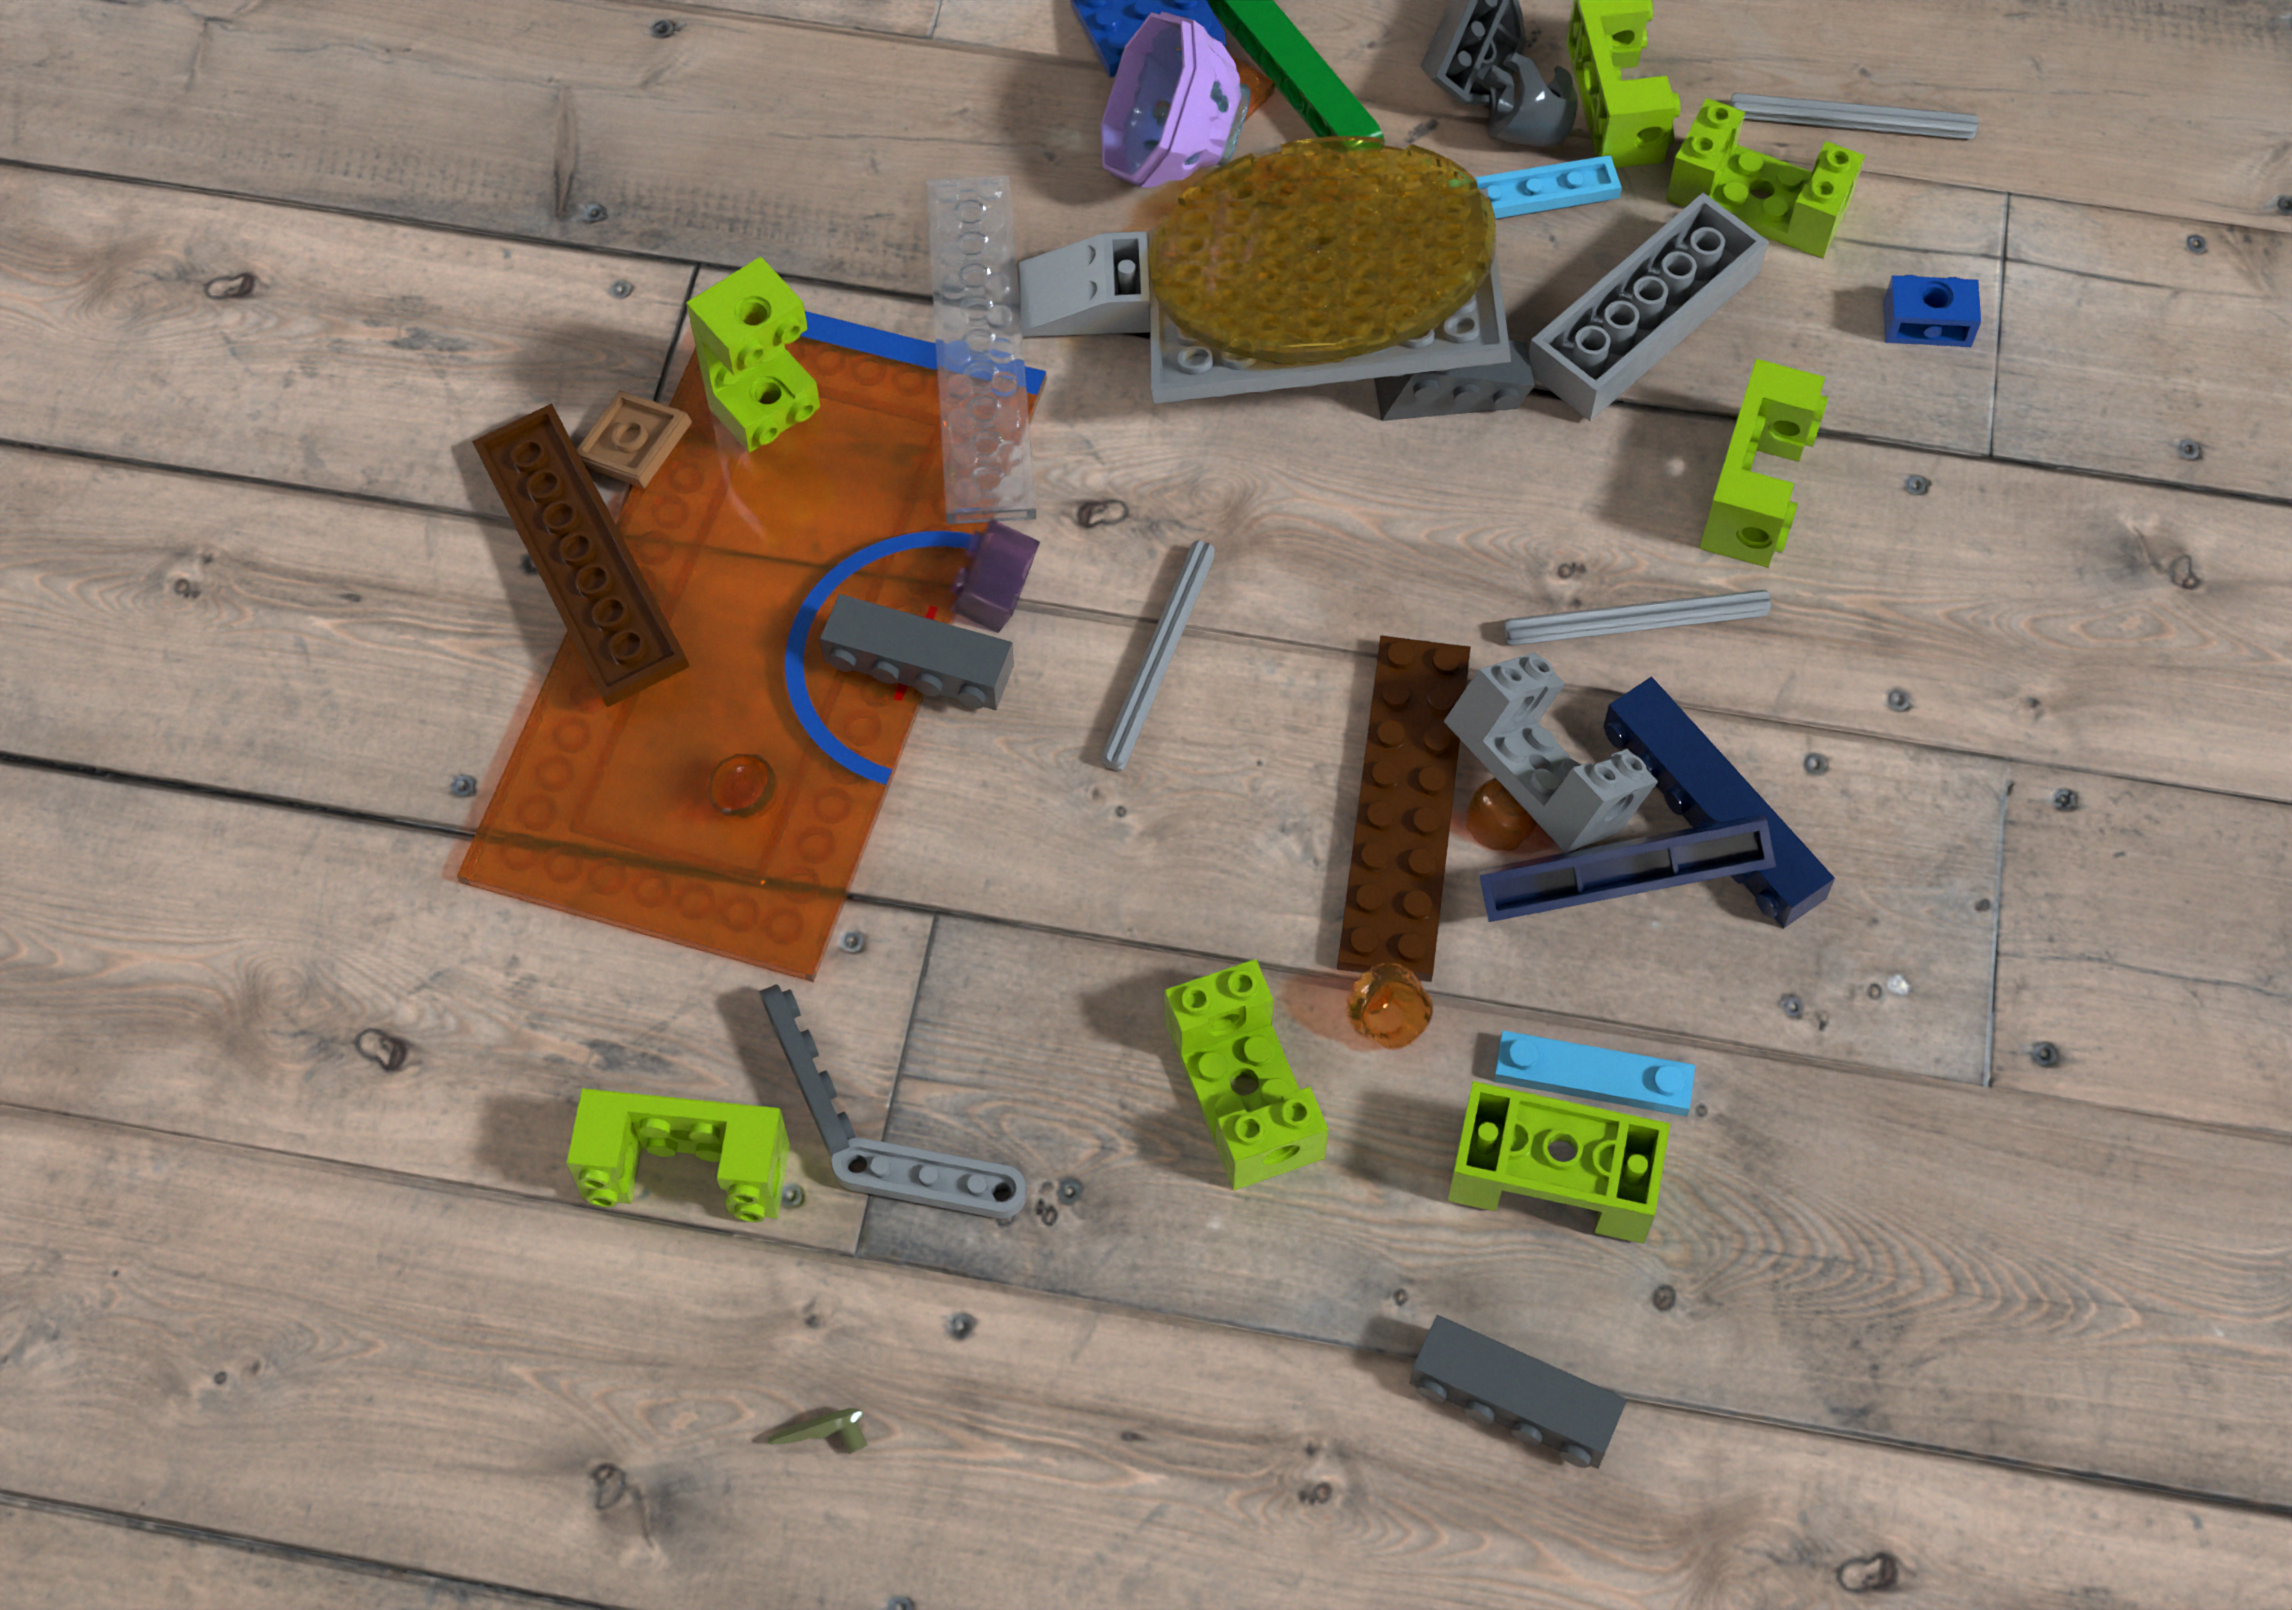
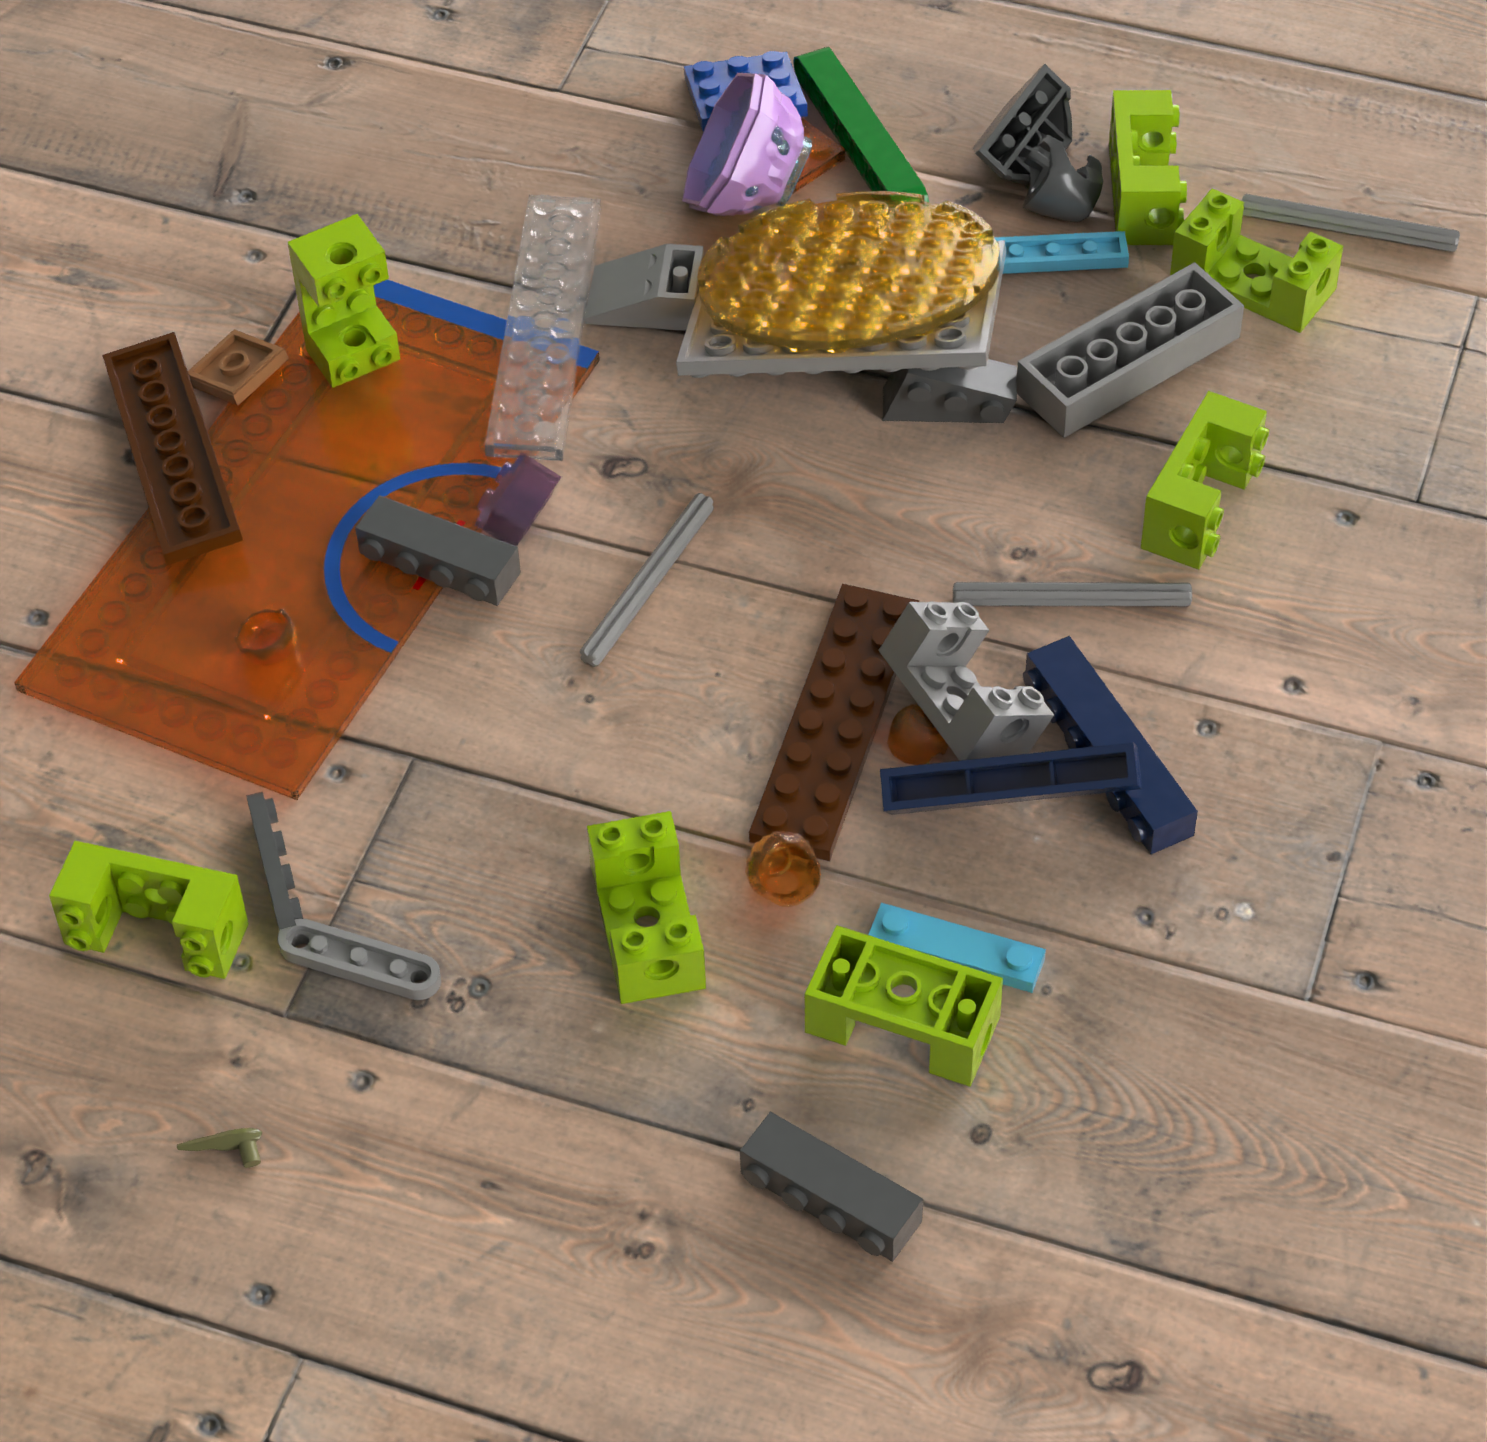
camera: 10 degrees right, 10 degrees down
(1932, 311) = (1385, 380): blue brick -> none

